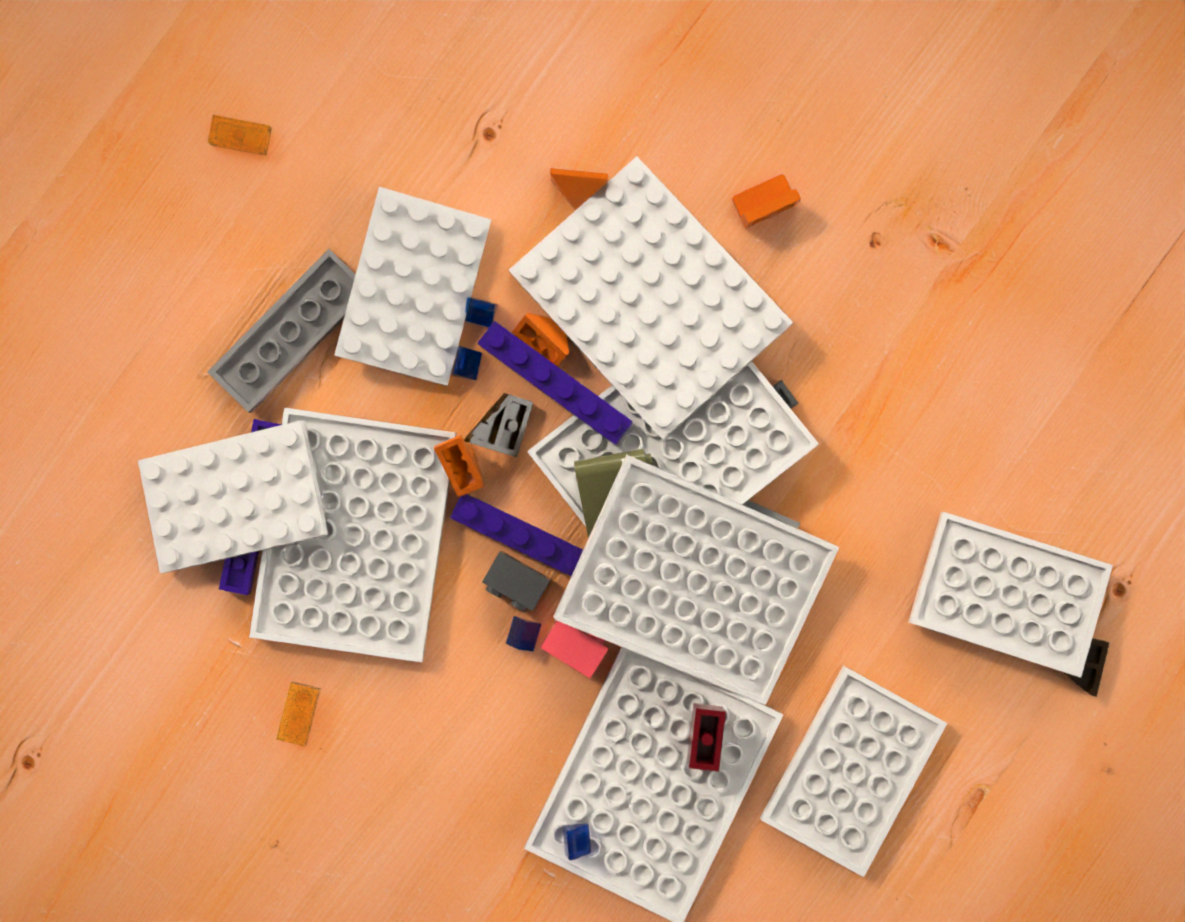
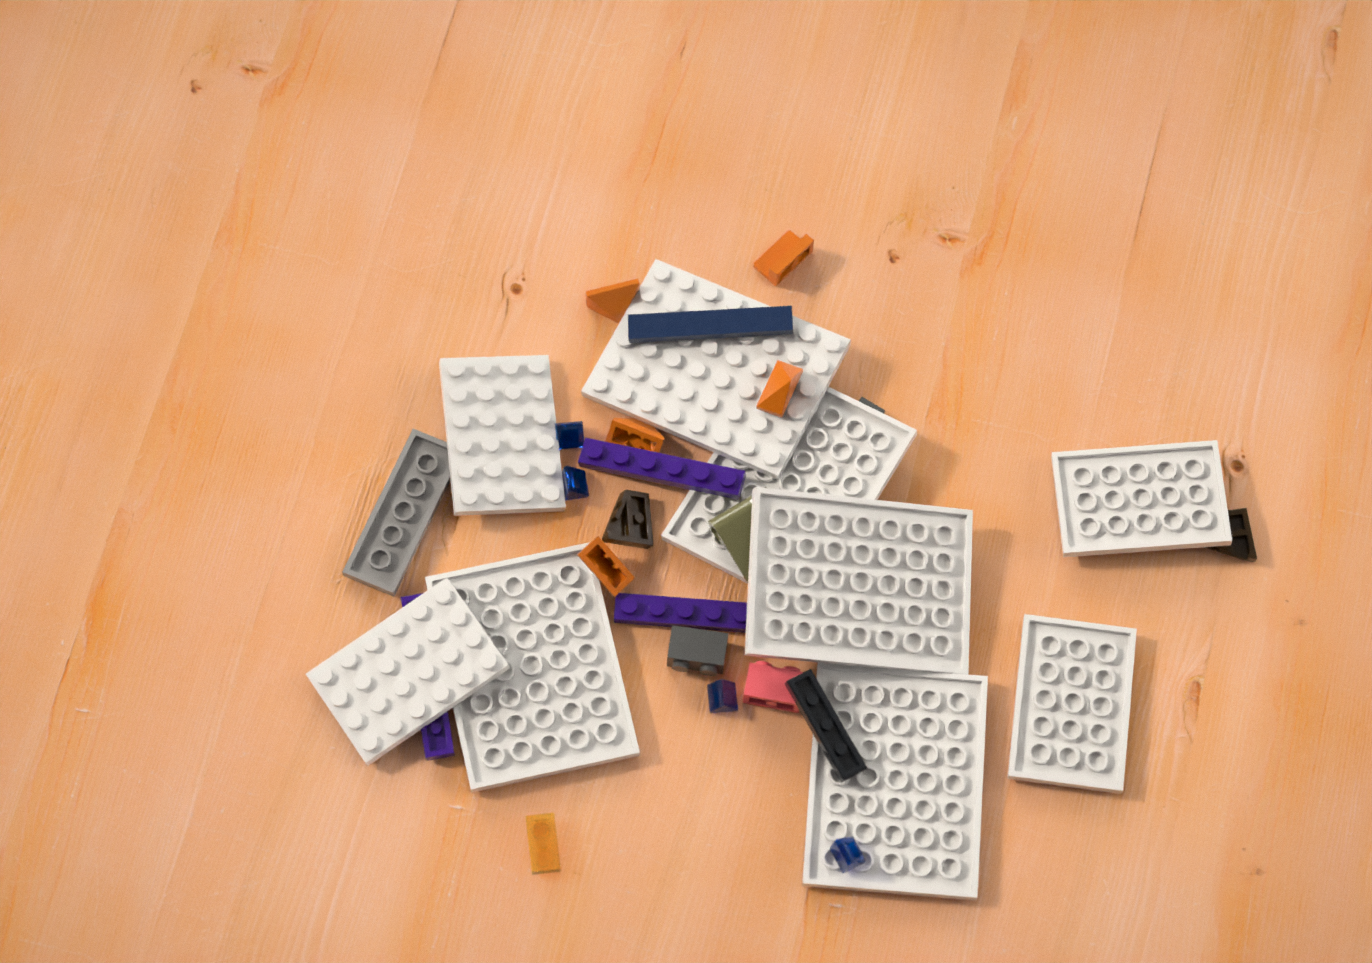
camera: 25 degrees left, 20 degrees down
(239, 135) = (292, 365): clear yellow plate -> none
(606, 709) = (825, 725): none -> black tile
(660, 252) = (710, 324): none -> dark blue tile
(700, 349) = (779, 388): none -> orange slope
(706, 737) = (925, 710): dark red brick -> none

